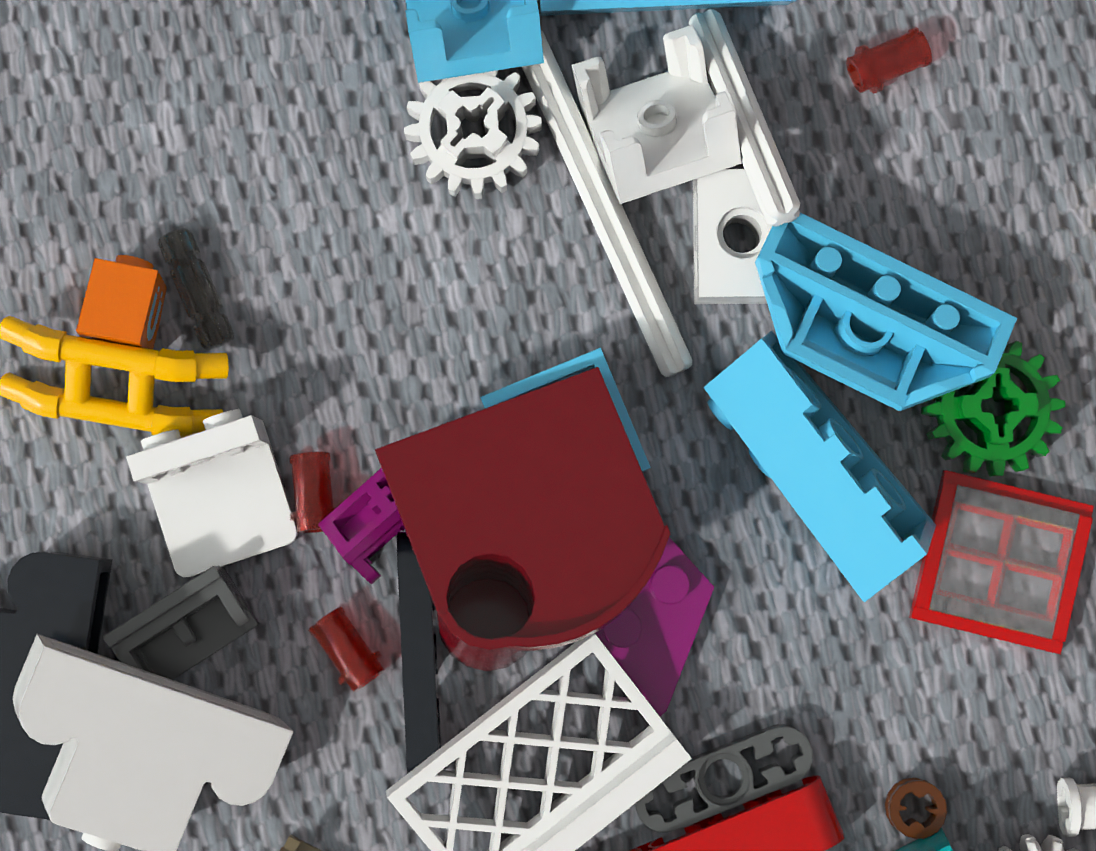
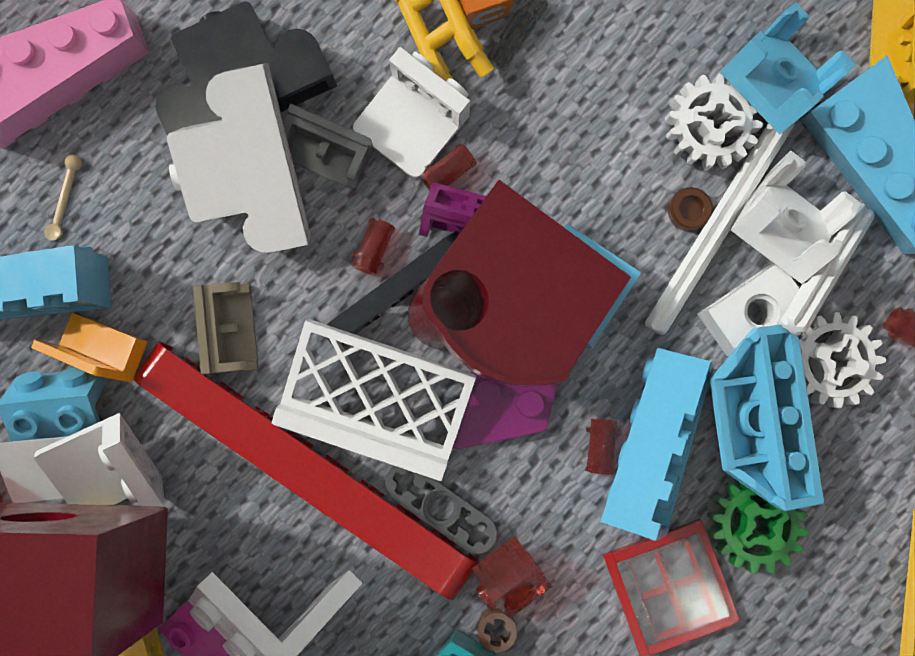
camera: 60 degrees right, 0 degrees up
(560, 226) = (690, 209): none -> reddish brown tile
(777, 531) = (601, 445): none -> clear red pin
(845, 159) = (850, 348): none -> white gear
(863, 750) = (510, 578): none -> clear red brick

